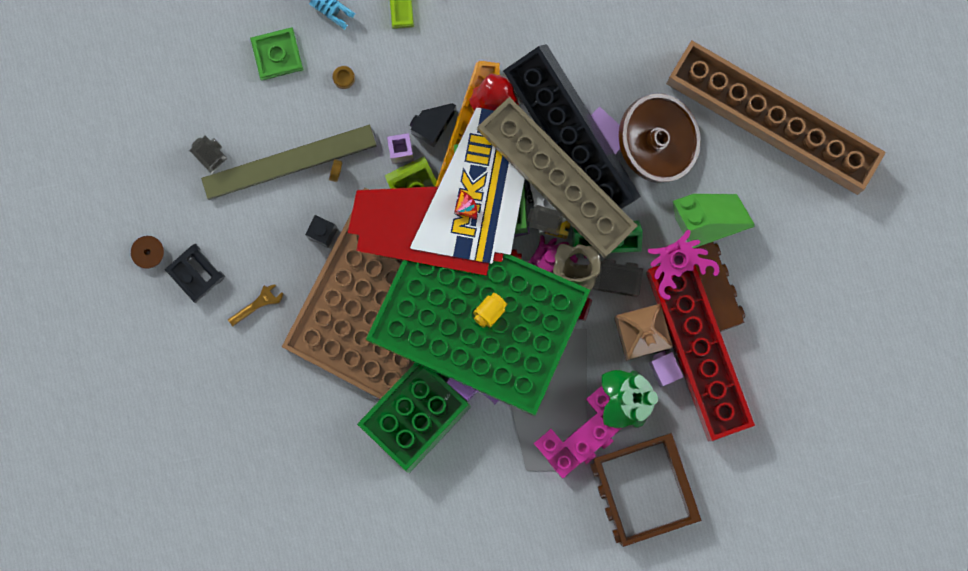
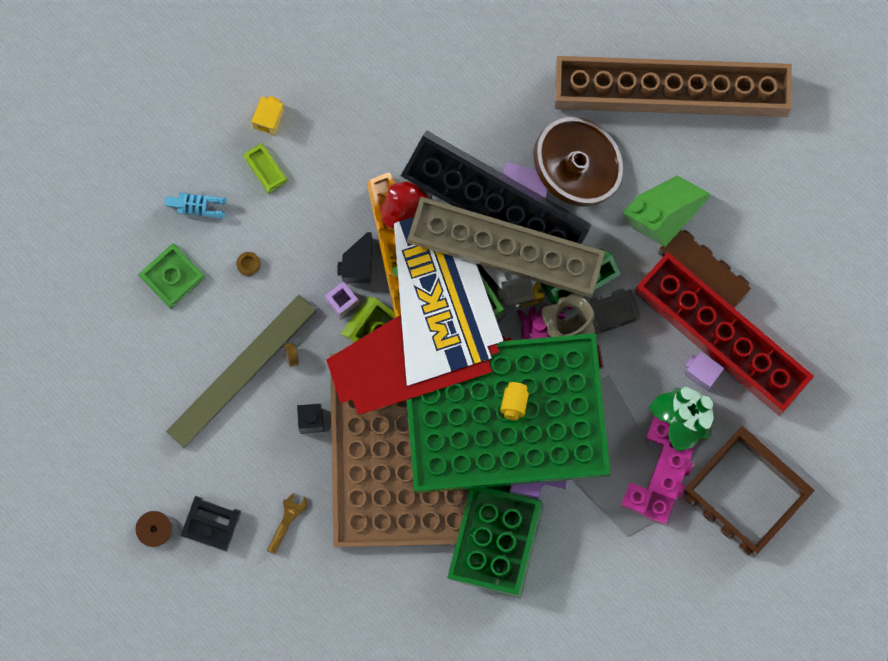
camera: 30 degrees left, 5 degrees down
(208, 153) = (160, 403): clear smoke brick -> none
(466, 206) = (437, 318): tile -> none
(643, 332) = (663, 348): medium nougat piece -> none
(678, 259) = (659, 261): dark pink animal -> none

